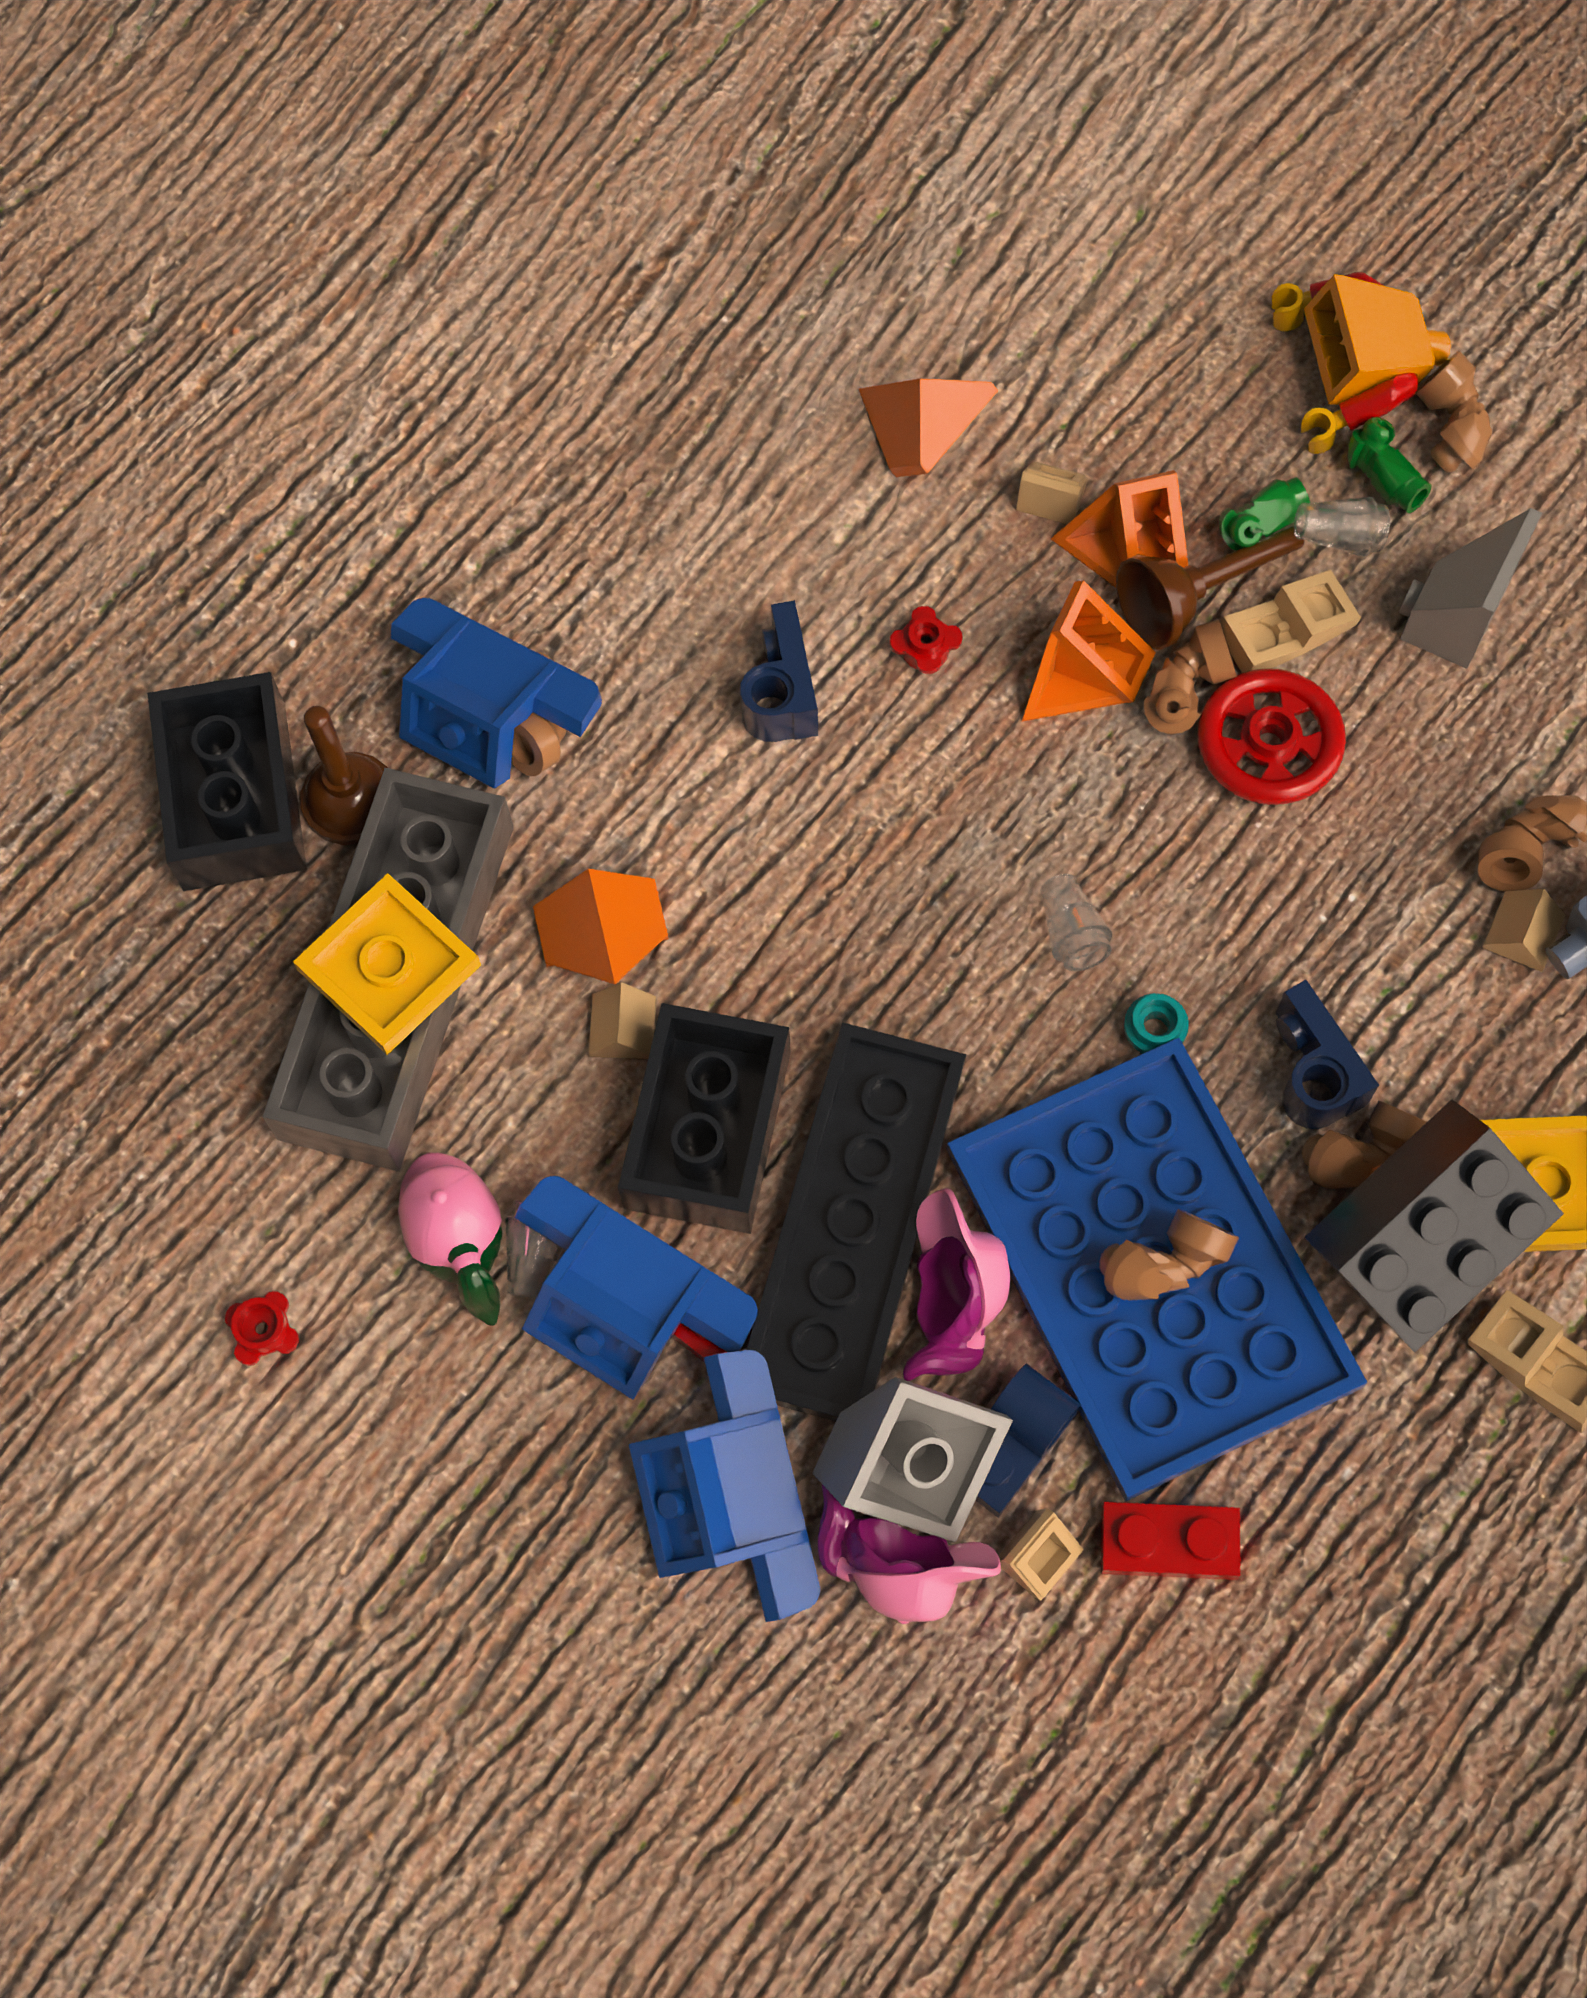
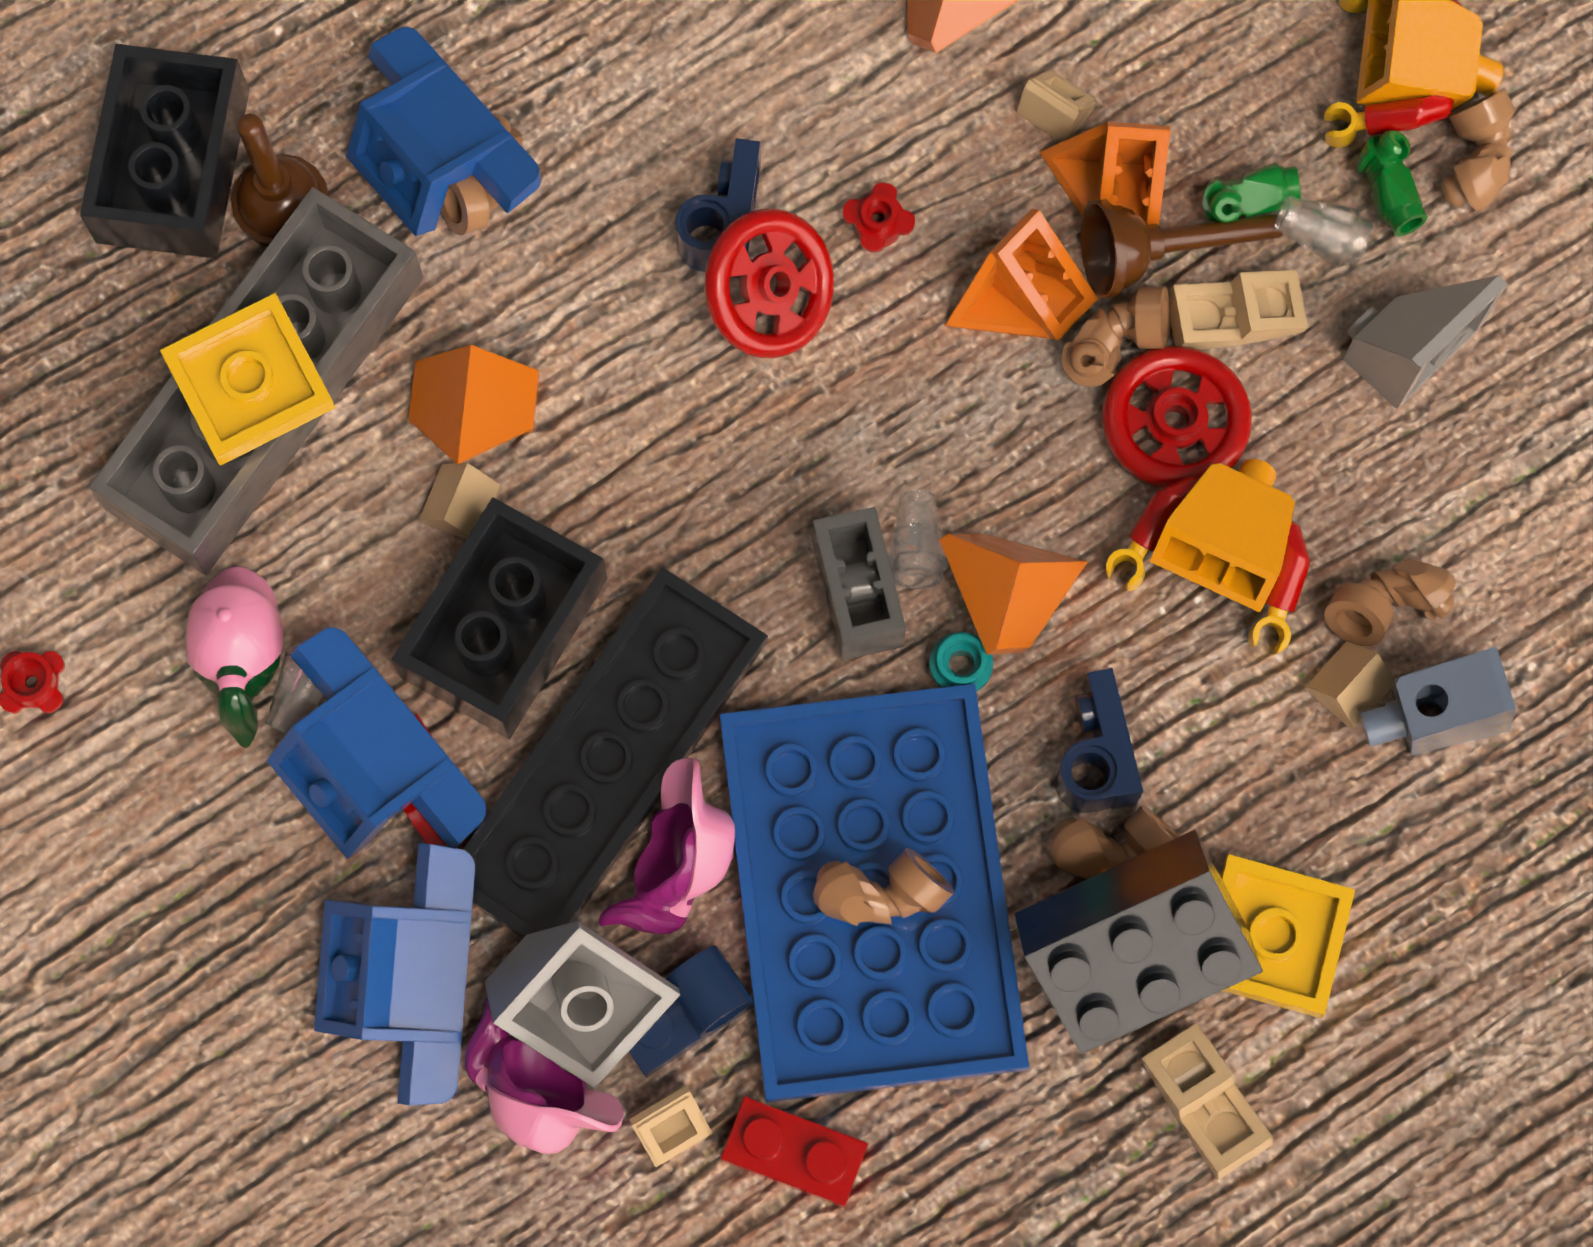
camera: 15 degrees right, 5 degrees up
(849, 728) = (731, 259): none -> red plate
(1036, 978) = (858, 583): none -> dark grey brick
(1175, 939) = (1009, 587): none -> orange slope
(1368, 828) = (1229, 537): none -> light orange torso

